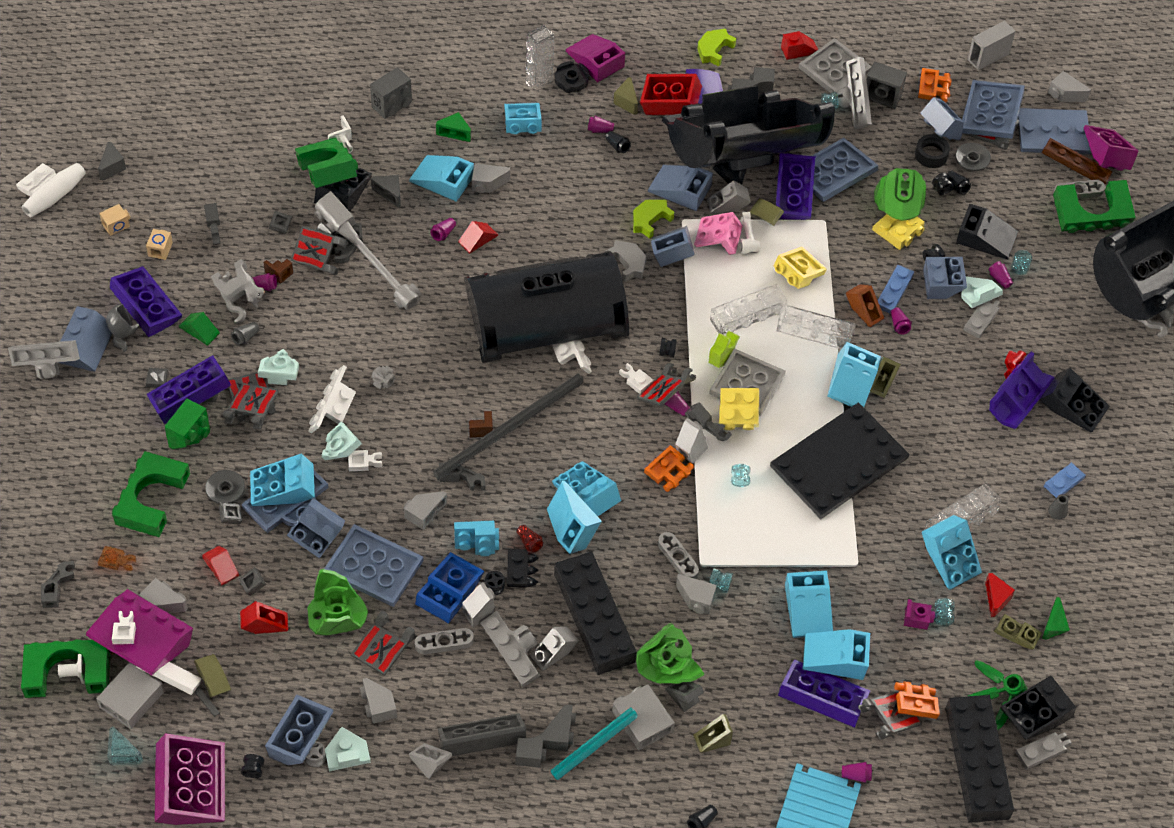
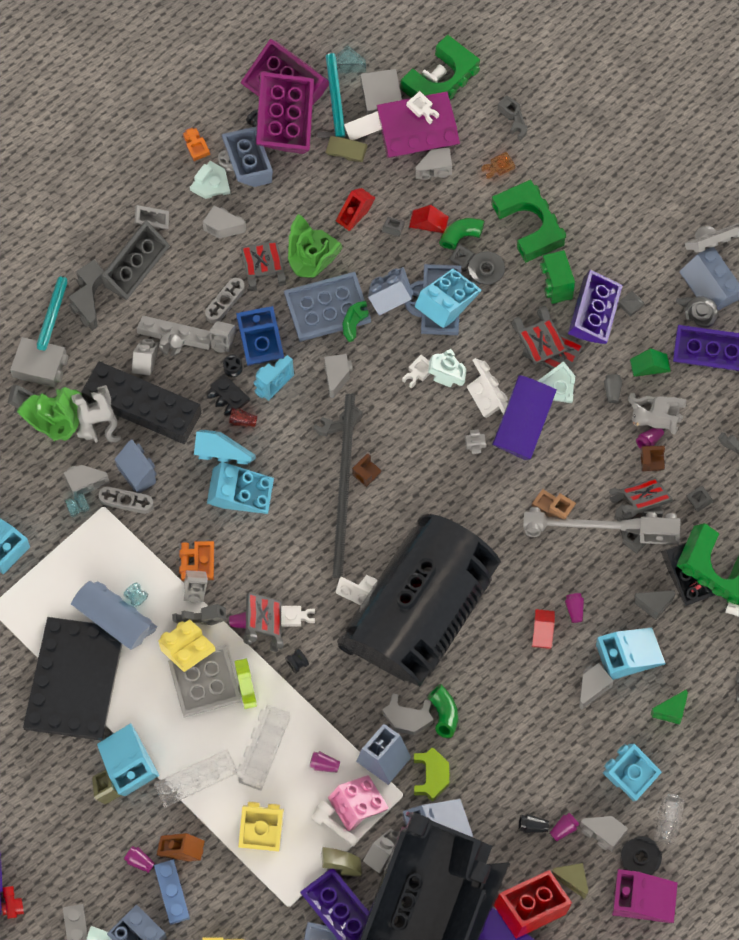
camera: 140 degrees right, 10 degrees up
(169, 722) = (335, 95): none -> teal axle
(206, 531) = (460, 229): none -> green cylinder
(228, 727) = (285, 112): none -> magenta slope
(324, 789) = (195, 145): none -> orange plate
(332, 355) = (524, 417): none -> dark purple slope
(367, 533) = (352, 318): none -> green piece
(380, 294) = (553, 506): none -> medium nougat slope
(577, 103) = (605, 830): none -> light grey slope
(602, 237) = (446, 711): none -> green cylinder
(643, 621) = (94, 413): none -> light grey animal
(649, 563) = (135, 467): none -> sand blue slope
(717, 271) = (323, 762): none -> magenta cone
(771, 470) = (113, 614): none -> sand blue brick

